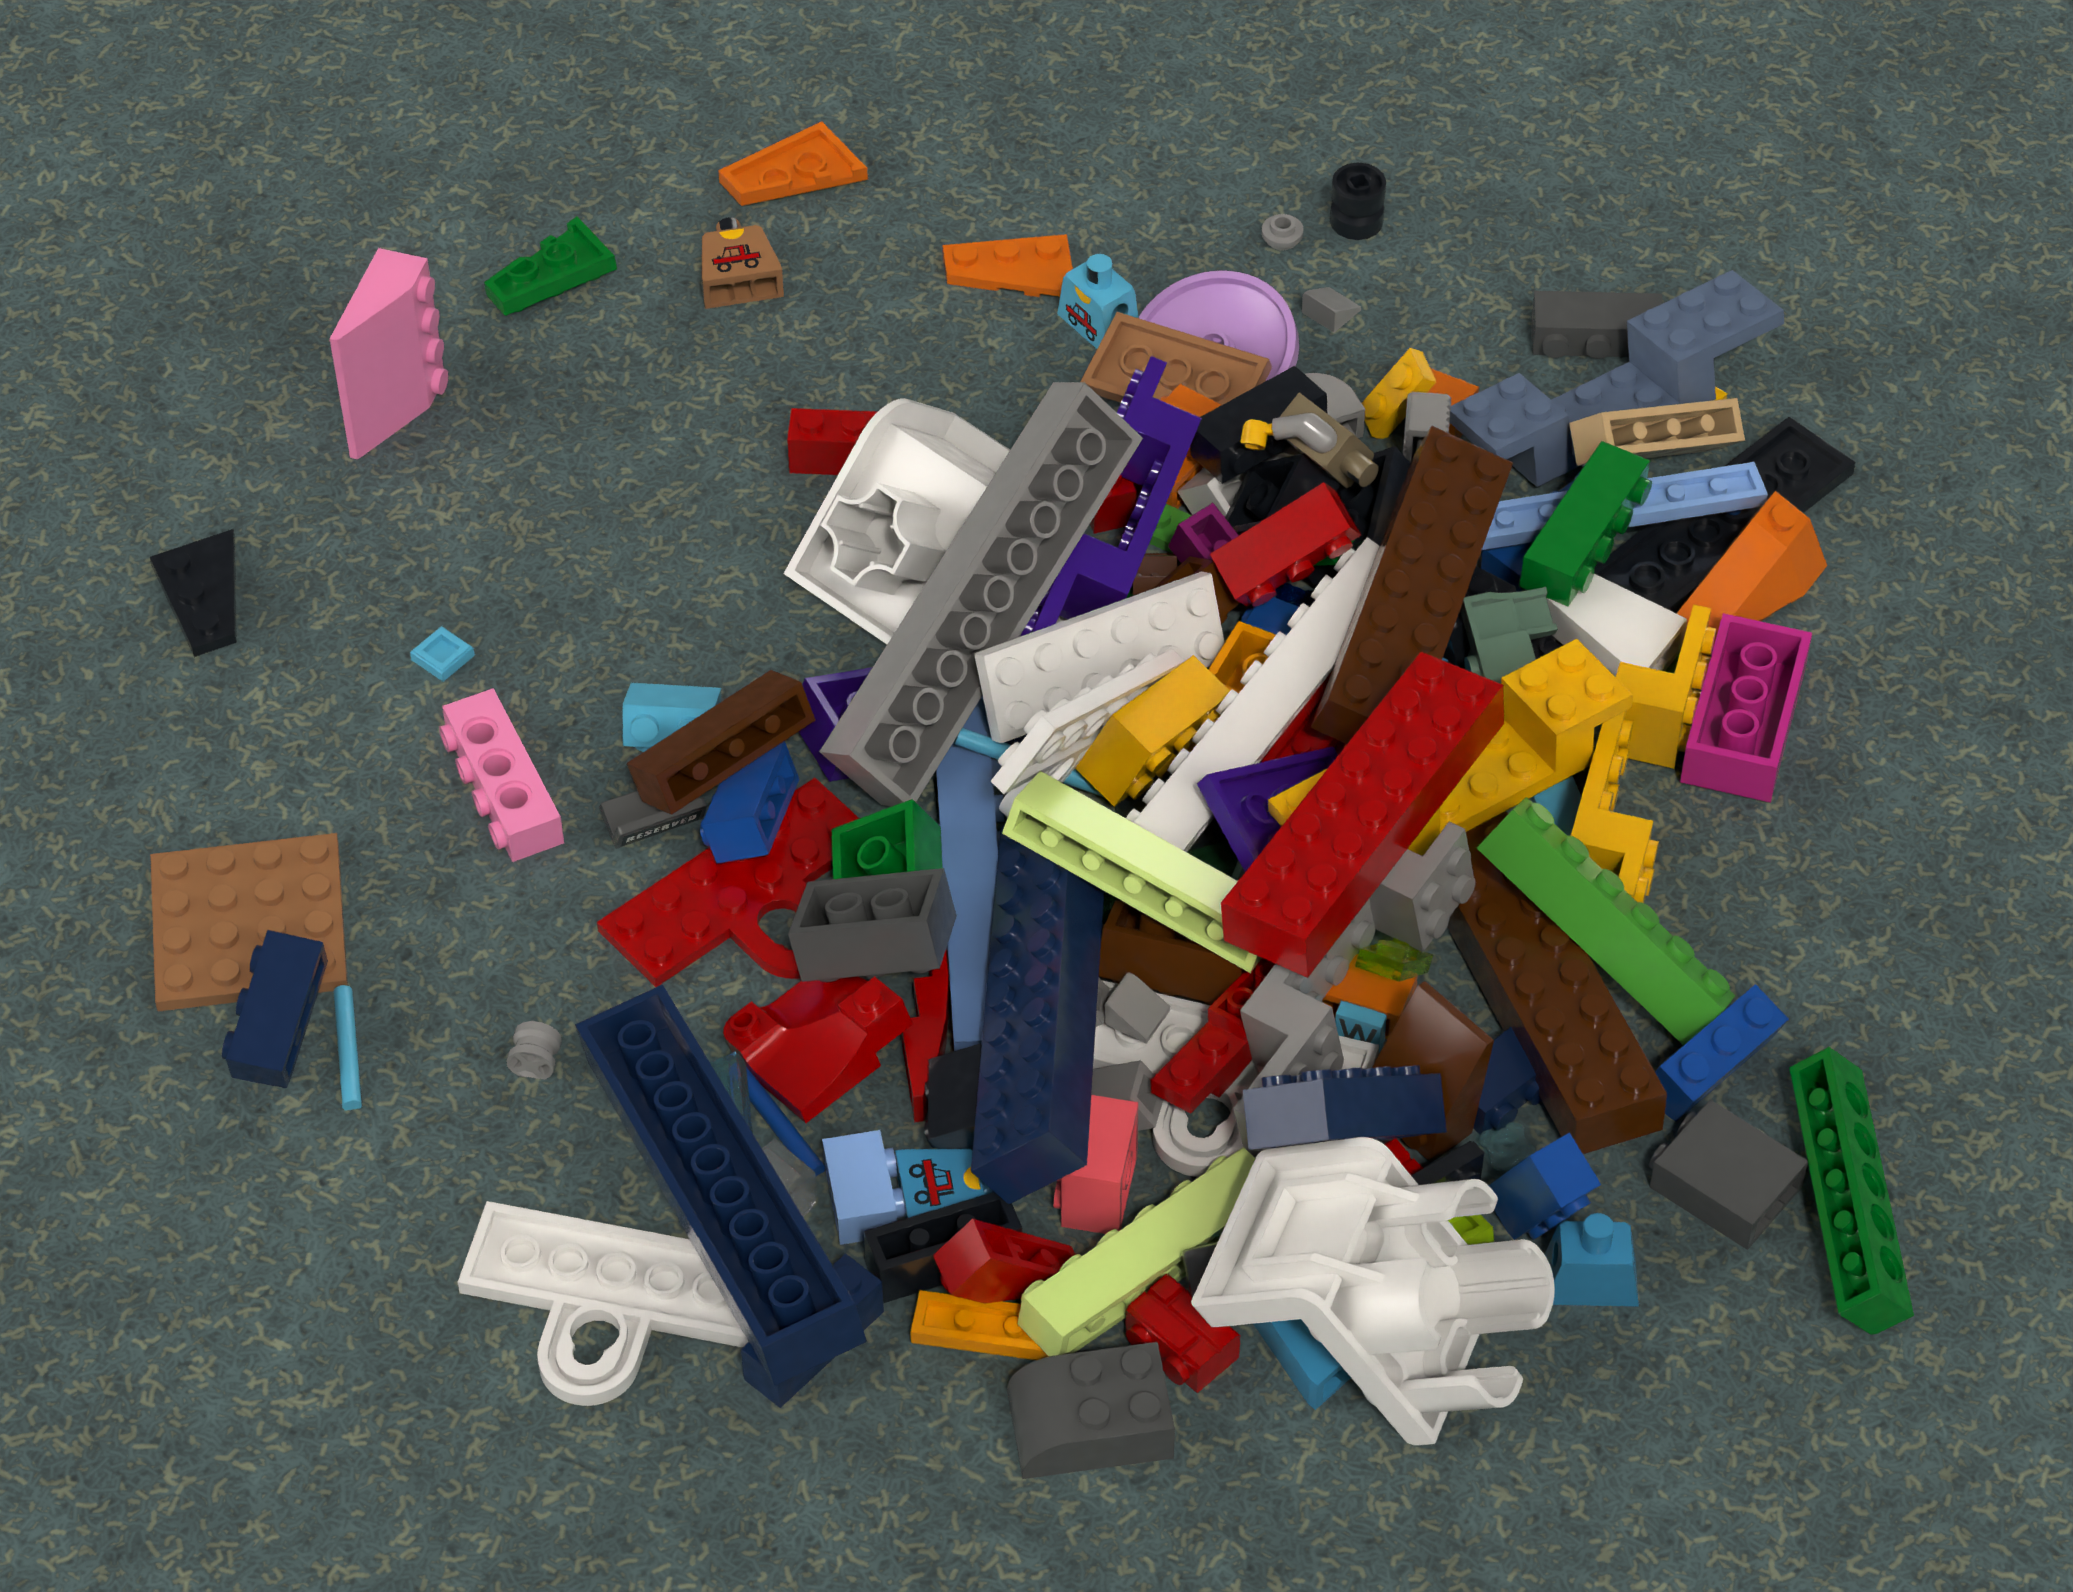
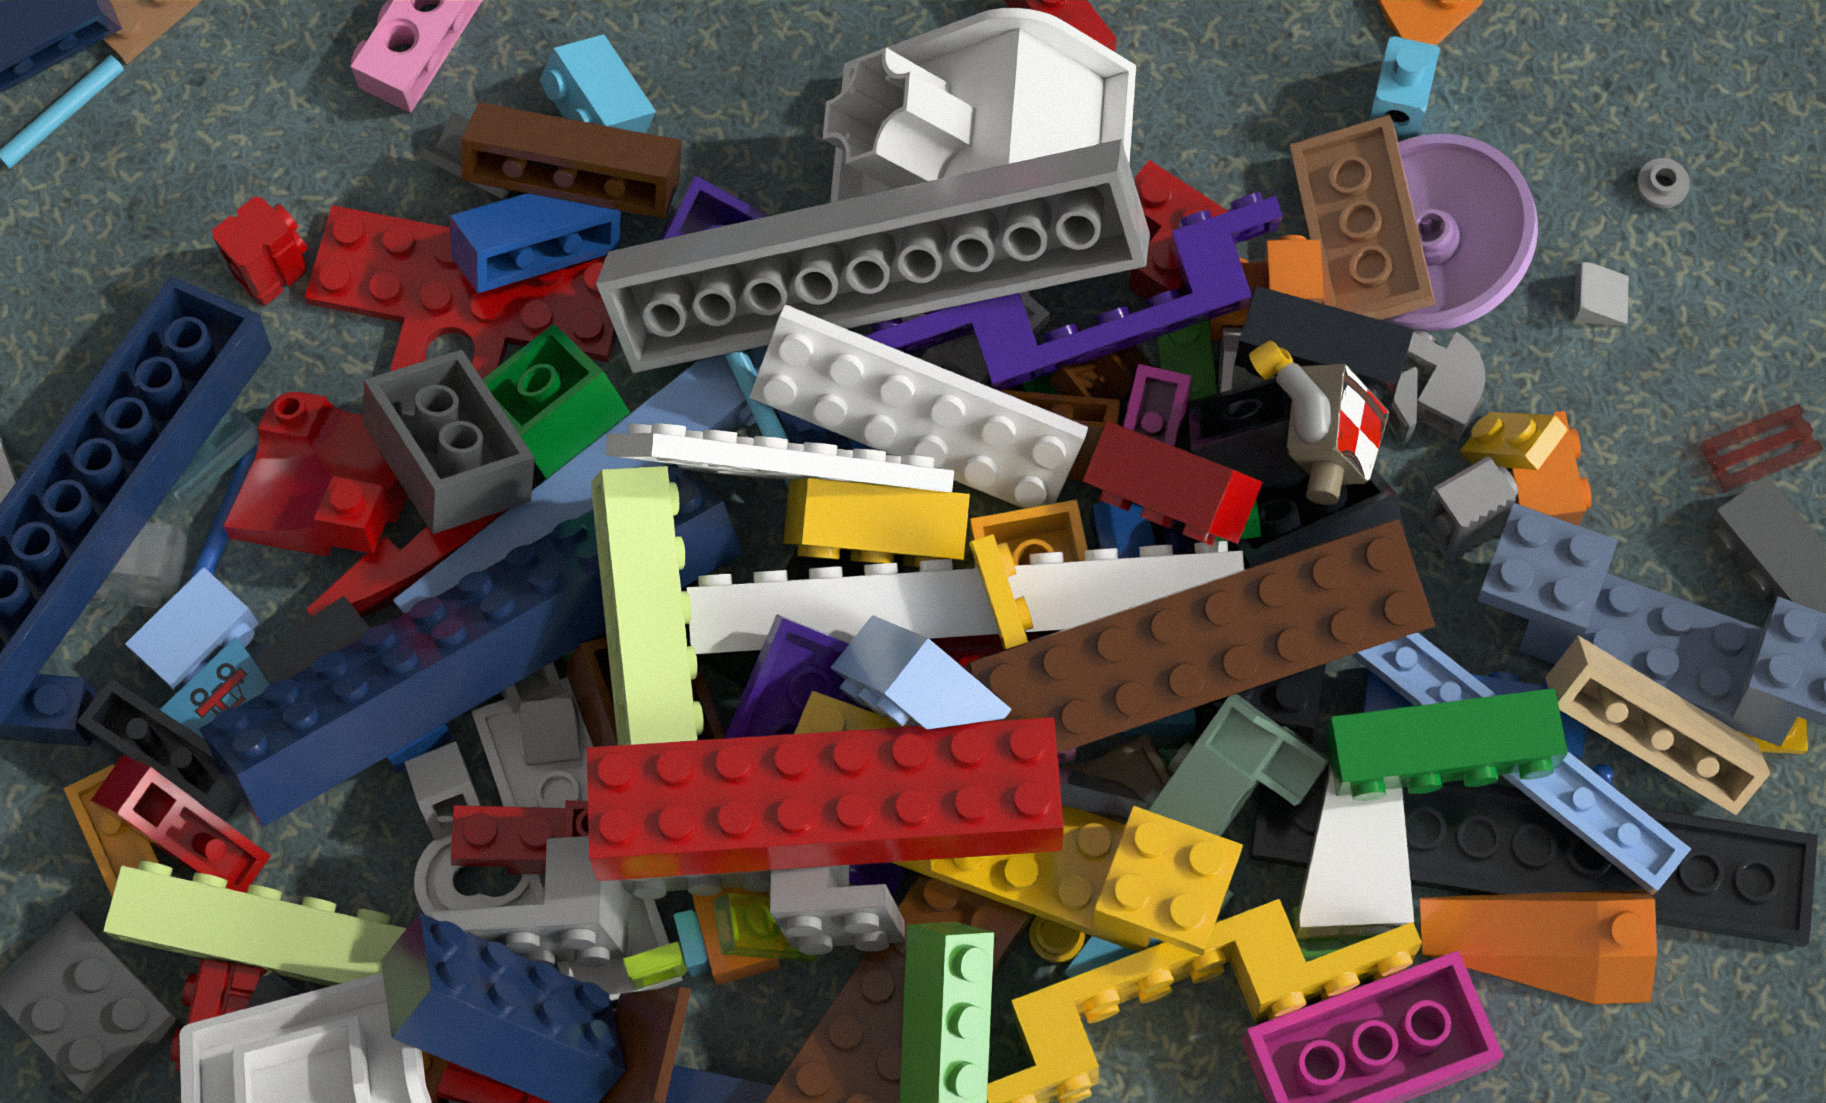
camera: 55 degrees right, 20 degrees up
(534, 1050) = (150, 260): light grey wheel -> none
(602, 963) = (262, 249): none -> red brick
(1098, 1193) = (344, 828): coral brick -> none
(1287, 663) = (994, 567): none -> yellow plate
(1314, 720) = (912, 679): none -> light blue slope
(1357, 201) = (1753, 225): black wheel -> none
(1367, 1039) = (655, 966): none -> lime tile
(1511, 273) = (1799, 431): none -> clear red tile

